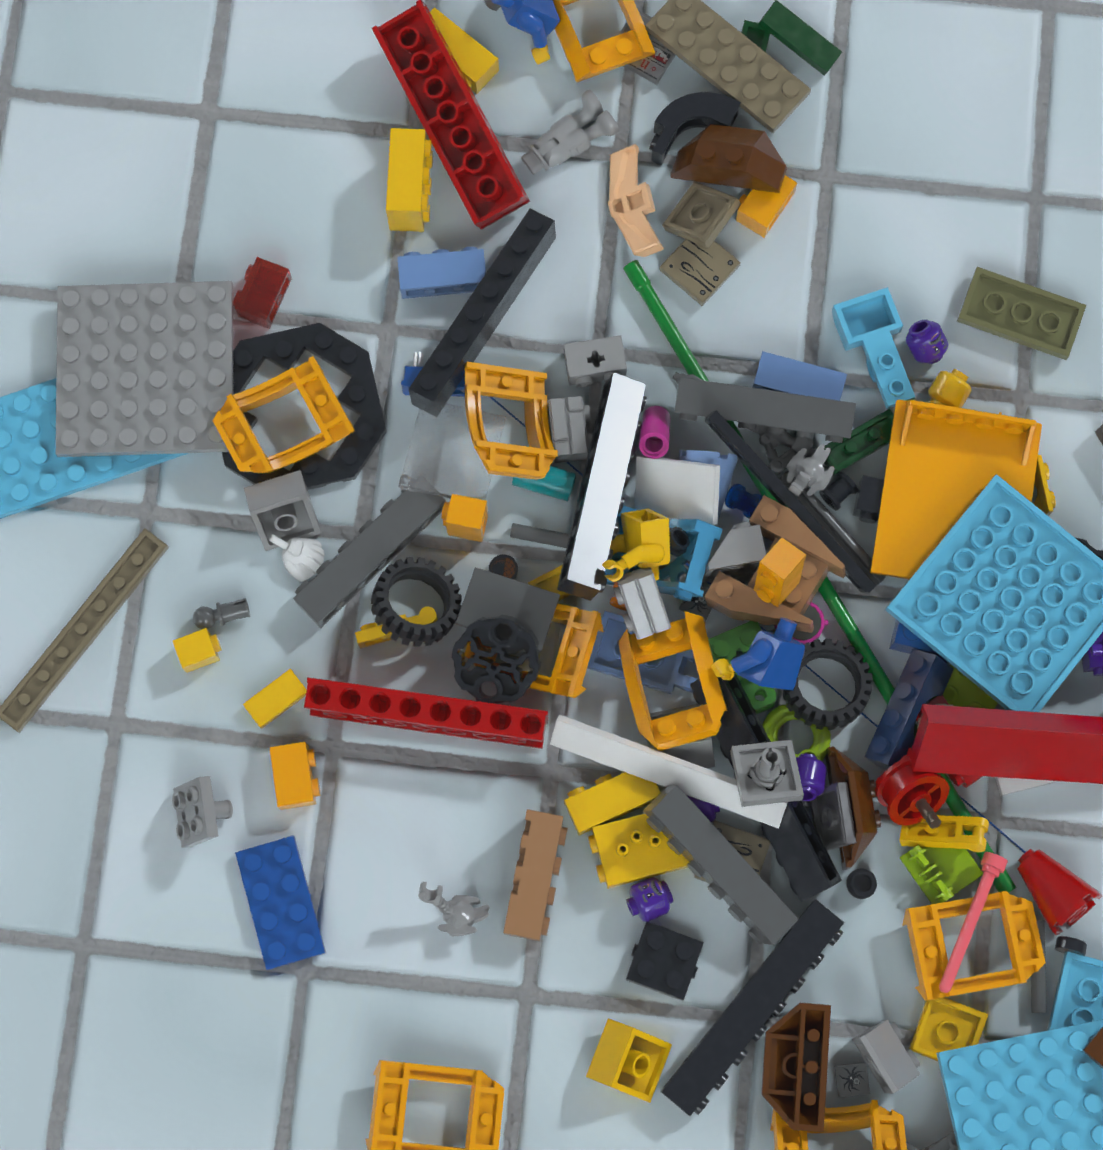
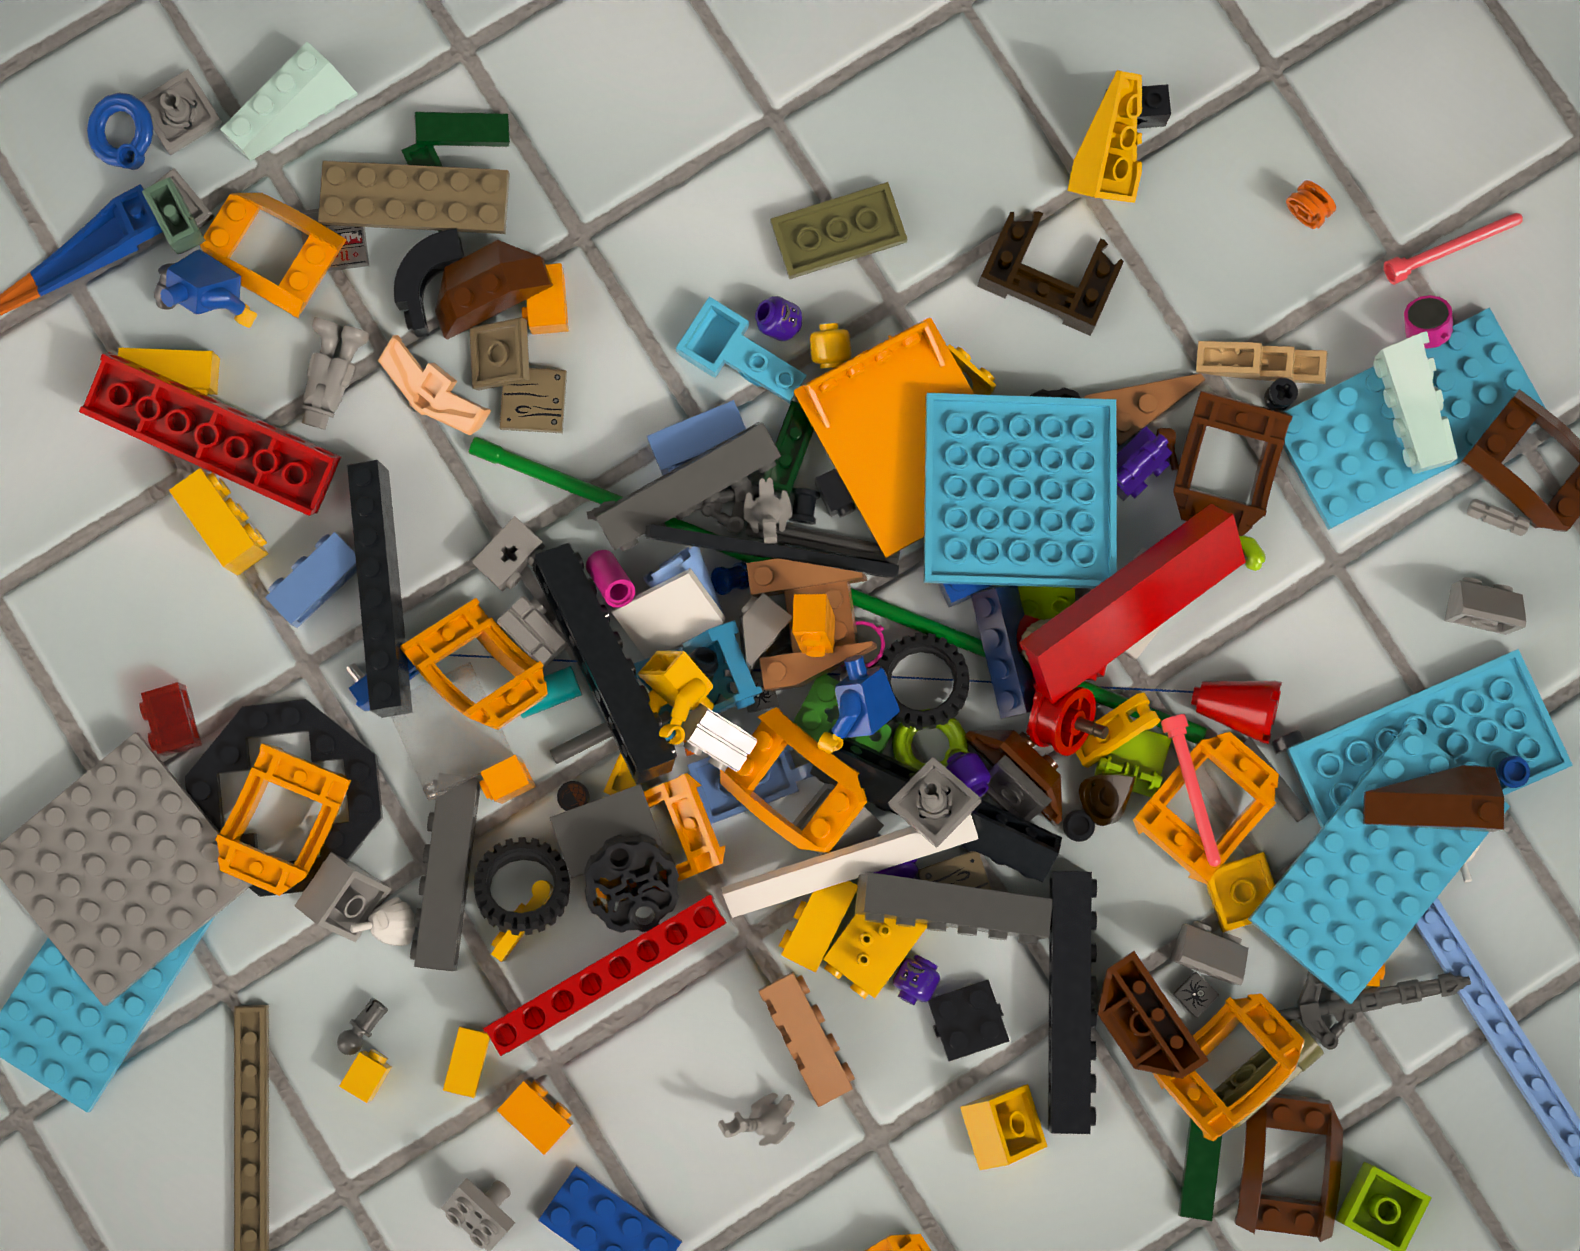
camera: 40 degrees left, 5 degrees up
(899, 879) = (1107, 798): none -> dark brown piece

